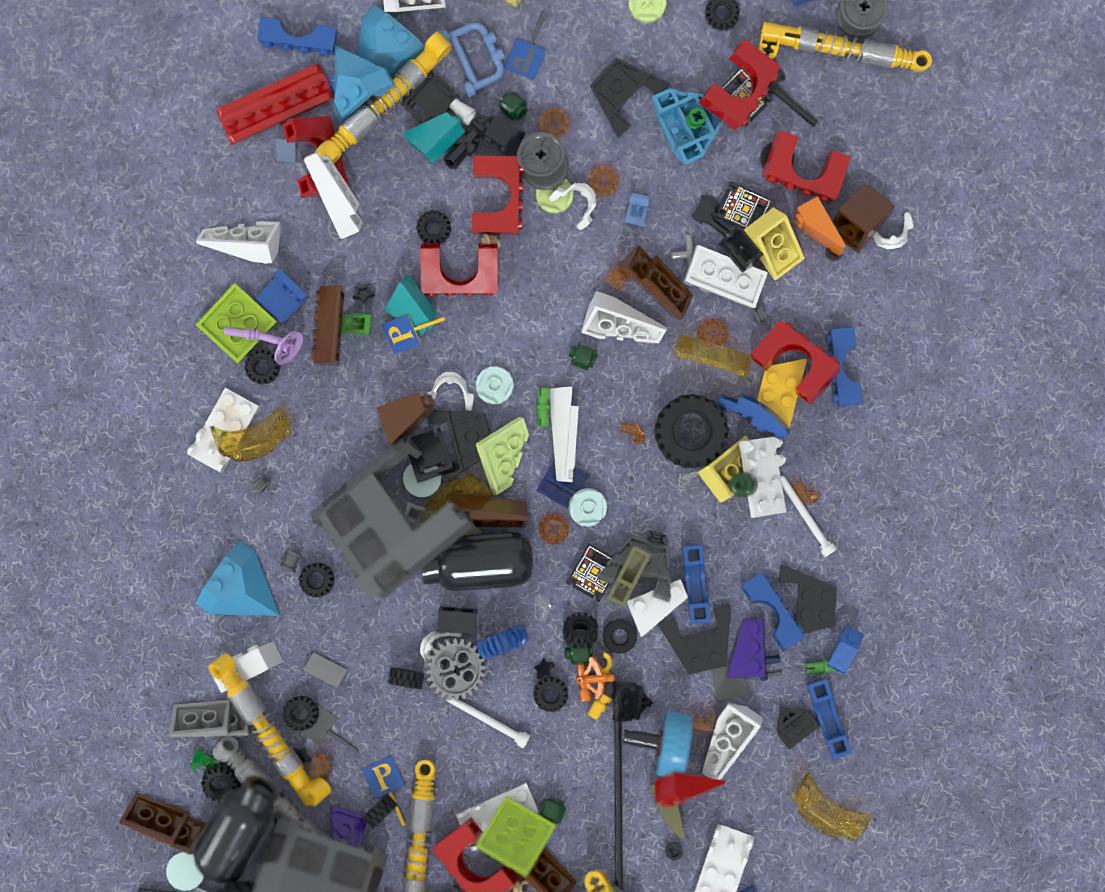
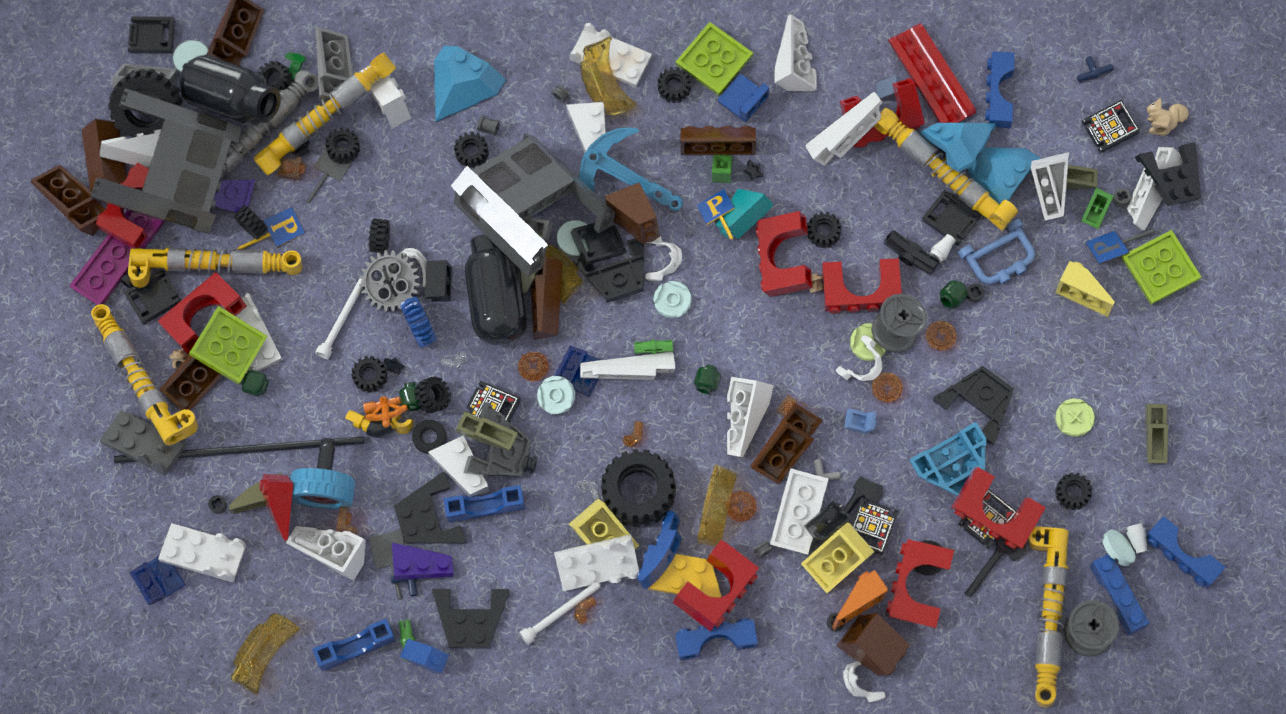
camera: 90 degrees right, 15 degrees down
(285, 345) = (697, 101): lavender dish -> none
(304, 455) = (587, 122): none -> white wedge
(325, 670) = (384, 165): light grey slope -> none
(354, 431) = (618, 170): none -> dark azure piece
(435, 135) = (914, 221): teal slope -> none
(498, 131) = (925, 278): black hinge -> none
(502, 453) = (603, 309): yellowish green plate -> none
(508, 80) = (980, 290): none -> black bush
(526, 57) = (1005, 305): blue piece -> none
(629, 702) = (364, 449): black slope -> none
(701, 118) = (963, 464): green bush -> none
(744, 484) = (585, 537): dark green head -> none
(760, 591) = (439, 595): blue arch -> none
(795, 725) = (345, 615): black slope -> none

